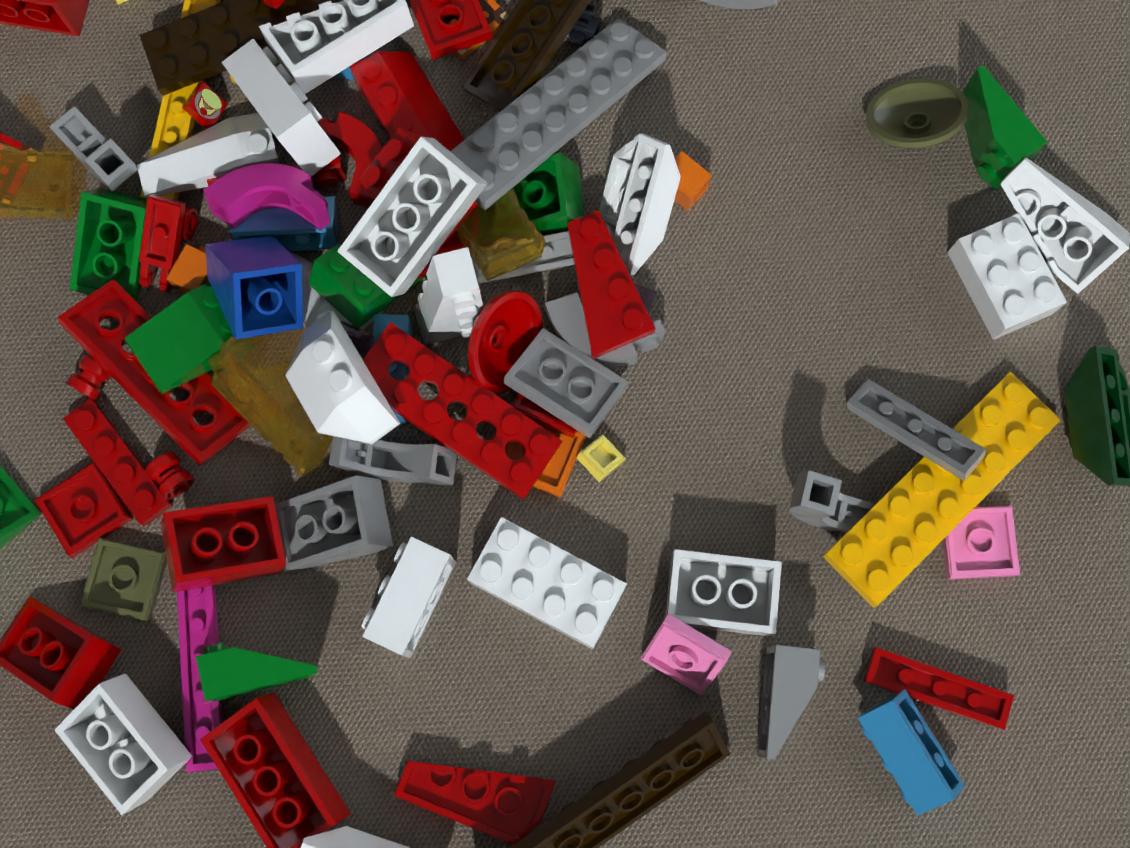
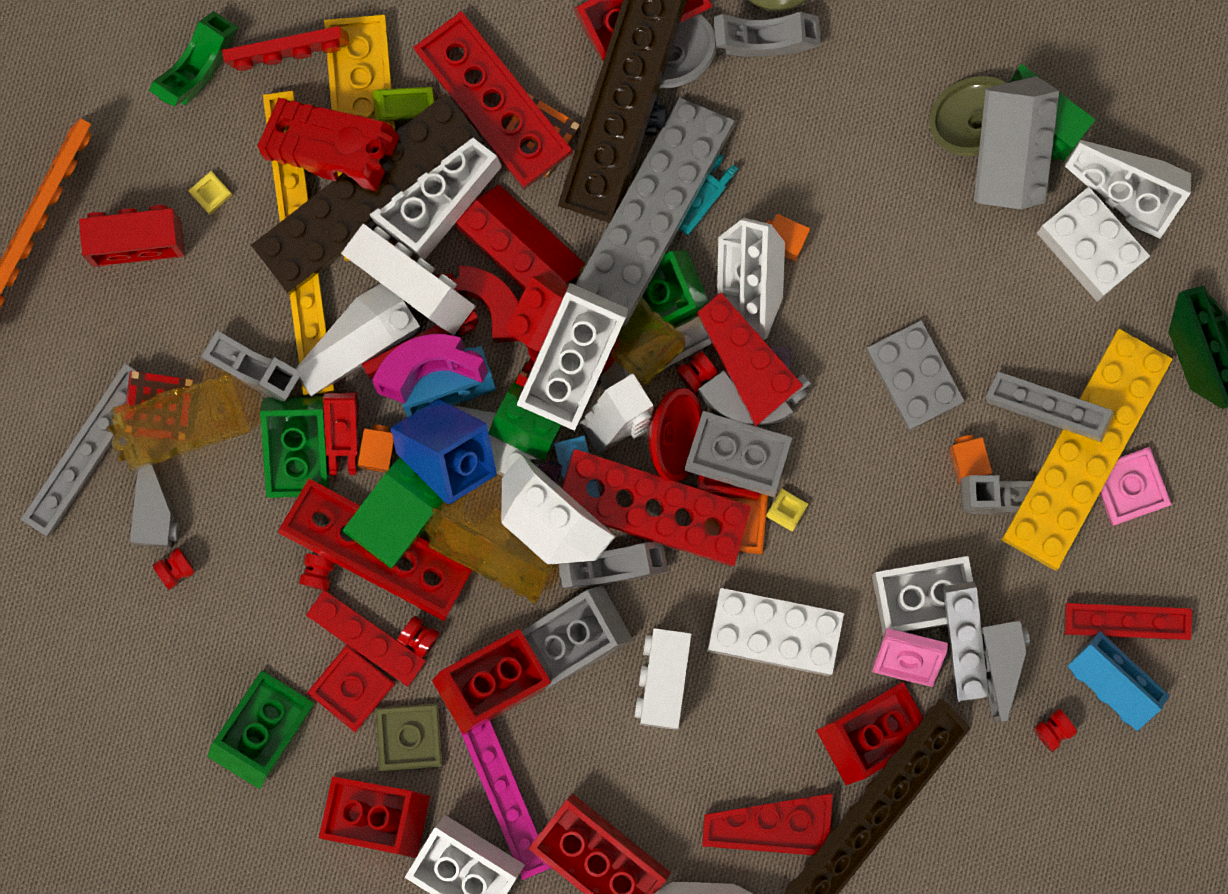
camera: 20 degrees left, 5 degrees up
(205, 105) = (331, 293): tile -> none
(240, 671) = (537, 786): green slope -> none
(555, 282) = (704, 371): none -> red wheel
(614, 119) = (707, 196): none -> teal hinge
(618, 726) = (870, 733): none -> red slope
(752, 654) = (965, 641): none -> light grey plate
(778, 359) = (914, 375): none -> light grey plate
(812, 454) = (969, 457): none -> orange brick
(824, 785) = (1055, 730): none -> red wheel
(955, 142) = (1016, 144): none -> light grey slope

